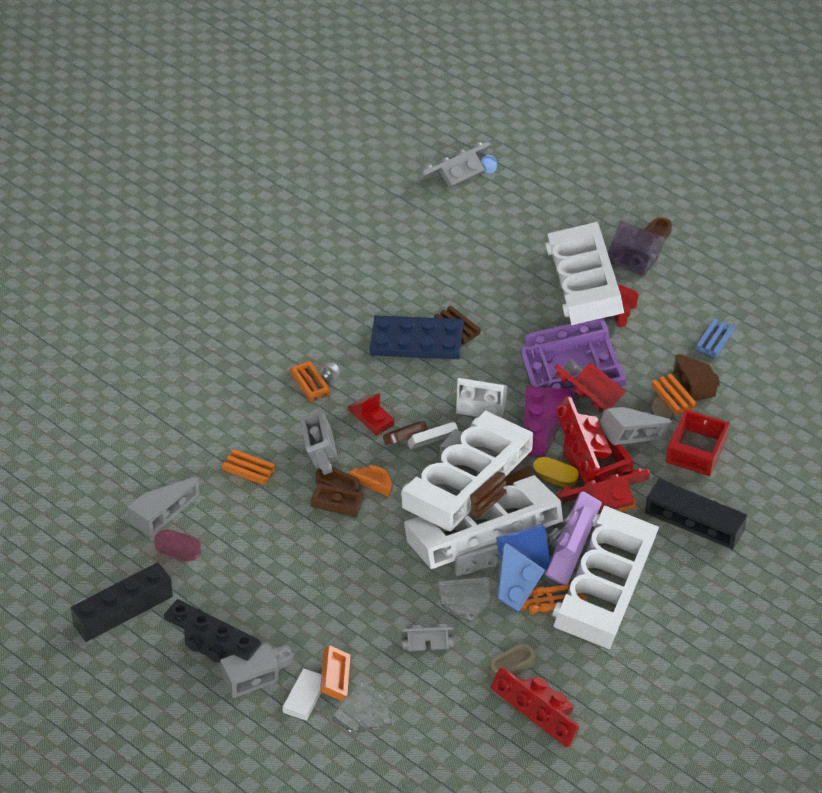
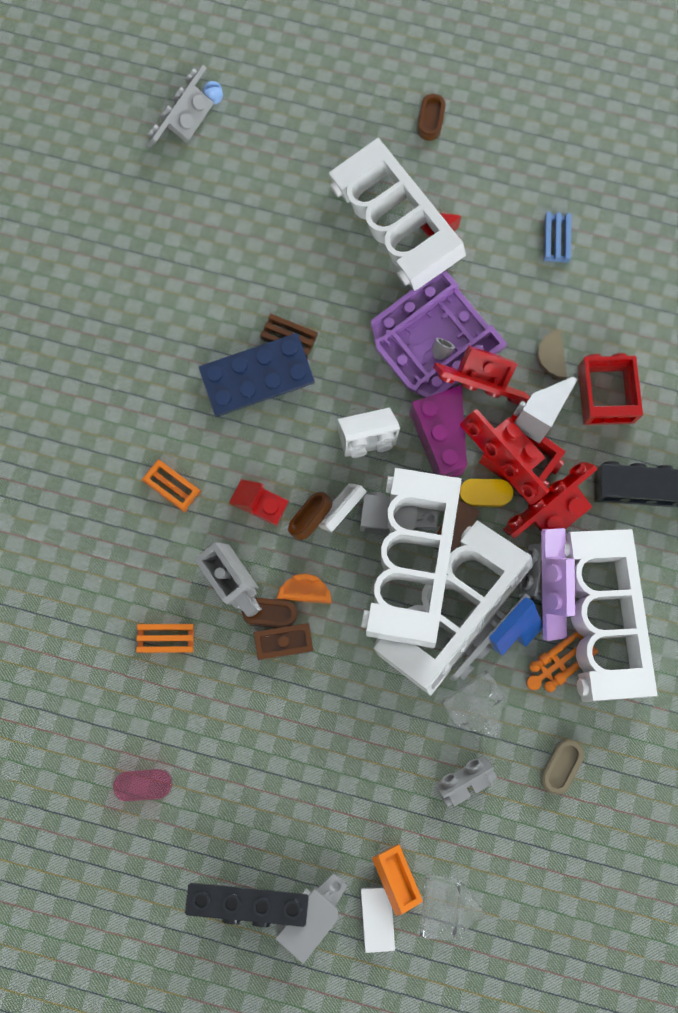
camera: 30 degrees left, 30 degrees up
(121, 601) = (124, 905): black brick -> none
(160, 505) = (96, 750): light grey slope -> none
(326, 375) = (188, 464): light grey hinge -> none
(488, 494) = (452, 582): reddish brown tile -> none
(517, 578) = (525, 668): medium blue wing -> none
(538, 703) = (618, 810): red bracket -> none
(635, 248) = (425, 150): clear purple slope -> none
(677, 393) = (559, 333): orange tile -> none
(696, 377) = (566, 303): reddish brown slope -> none

